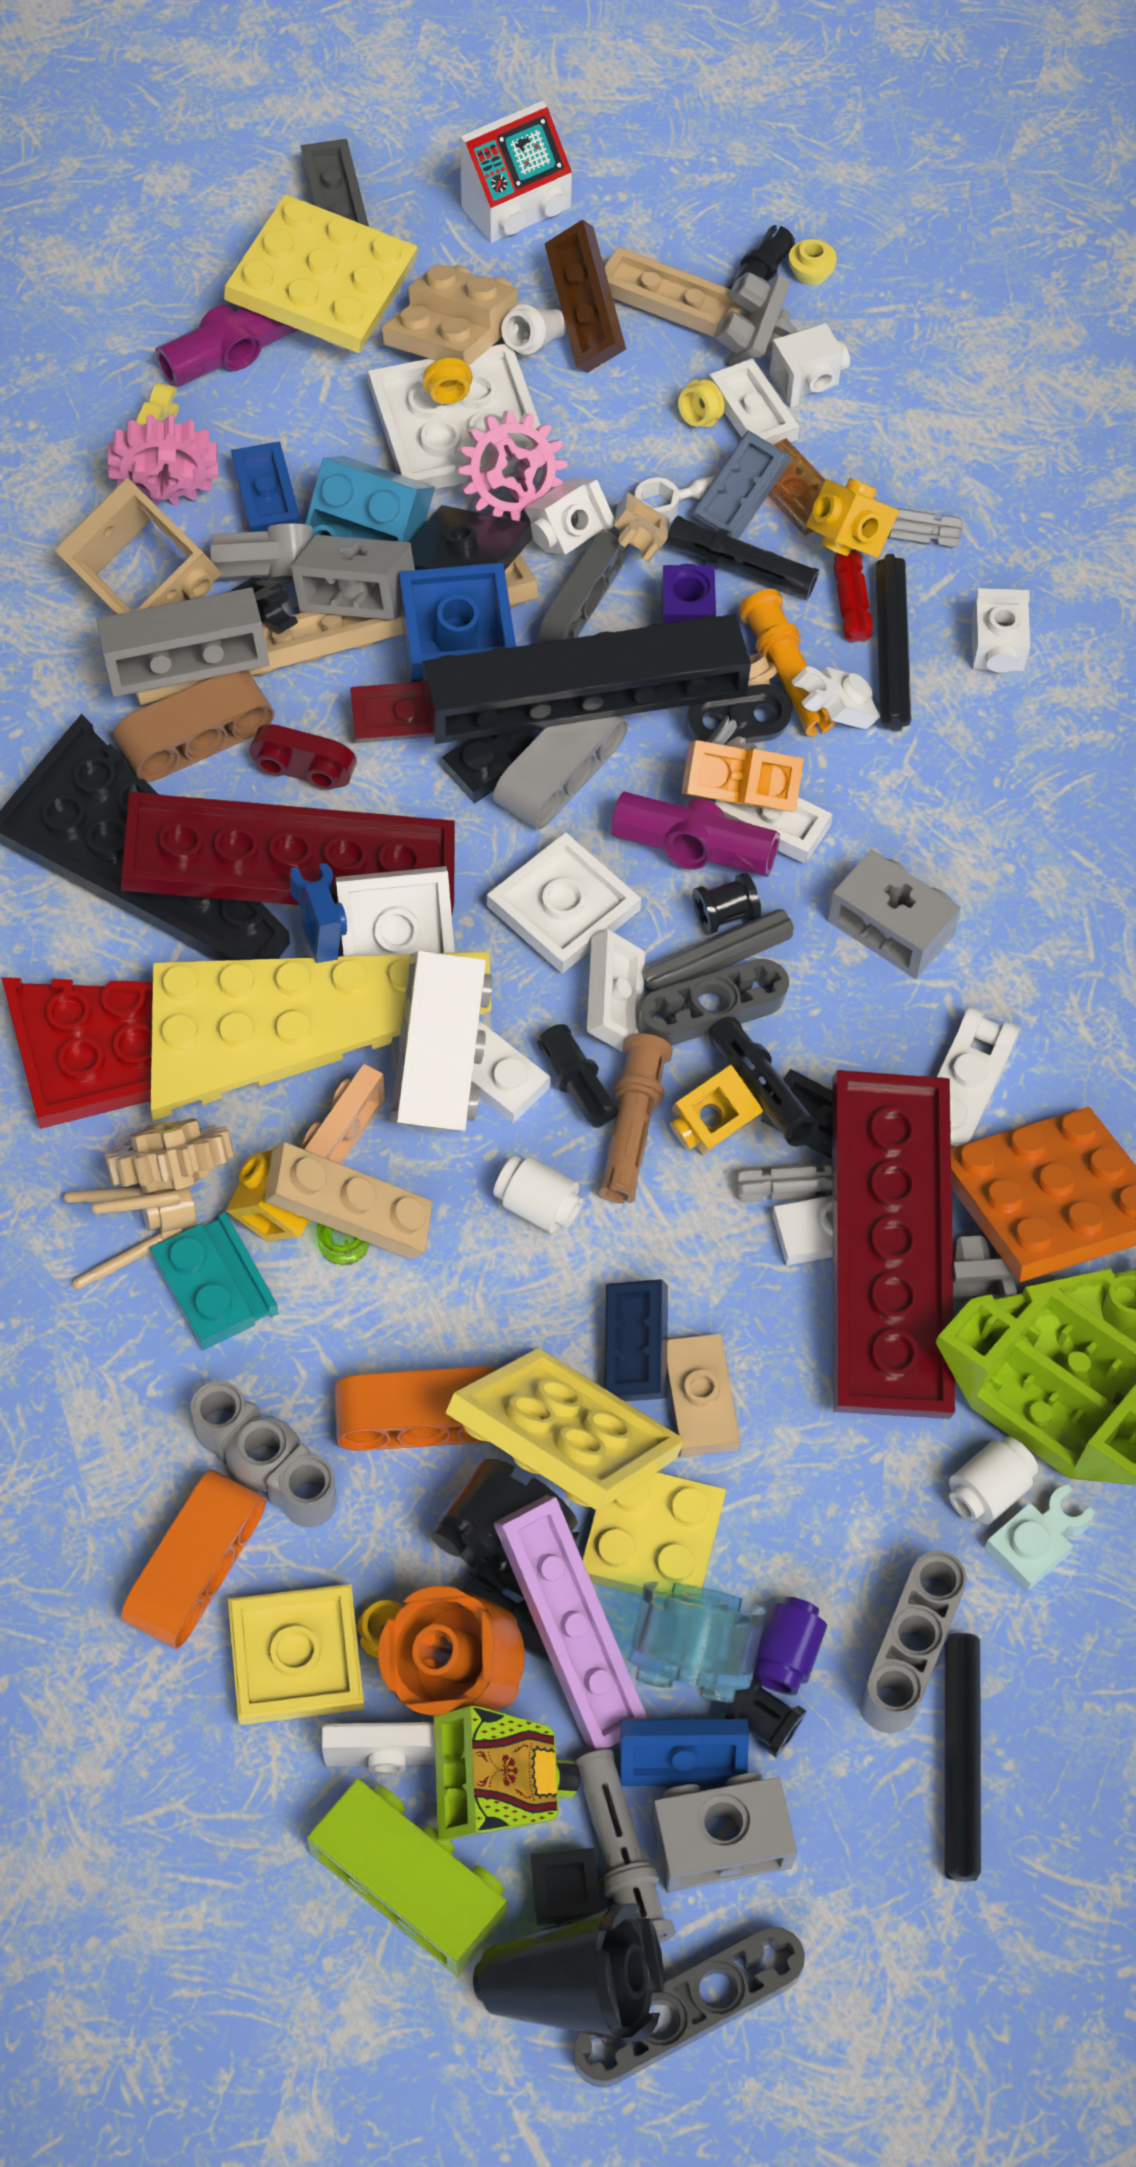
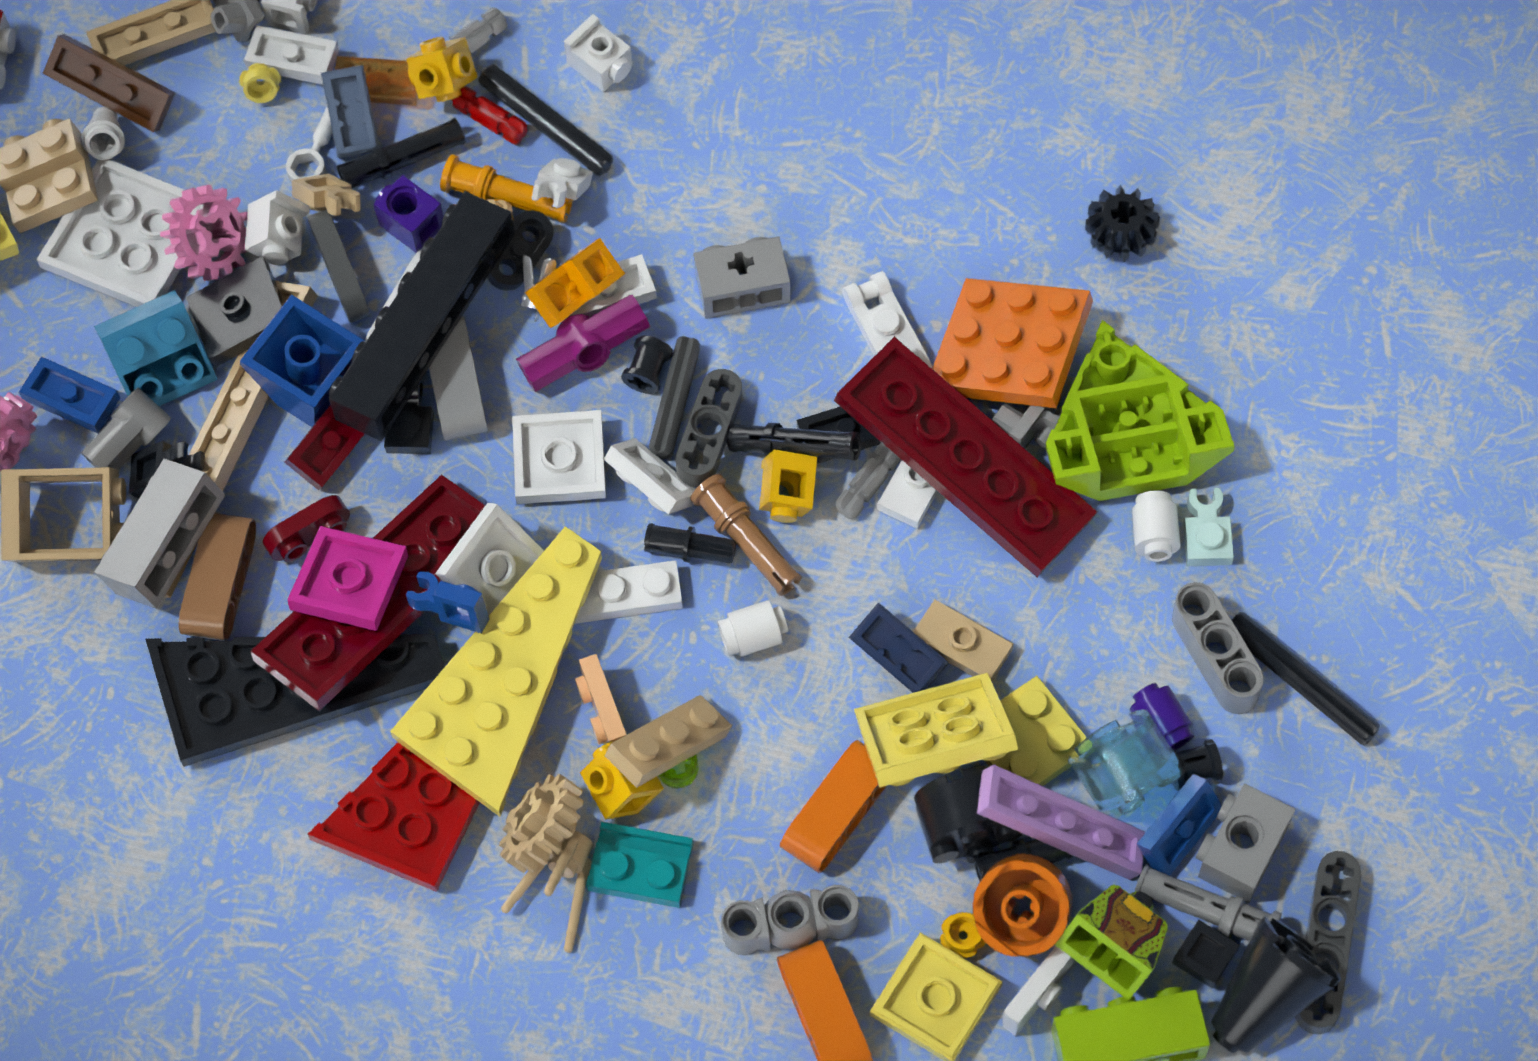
camera: 45 degrees left, 5 degrees up
(267, 812) = (348, 578): none -> dark pink plate
(351, 576) = (204, 392): light grey brick -> none
(440, 1041) = (607, 603): brick -> none
(447, 380) = (102, 216): yellow plate -> none

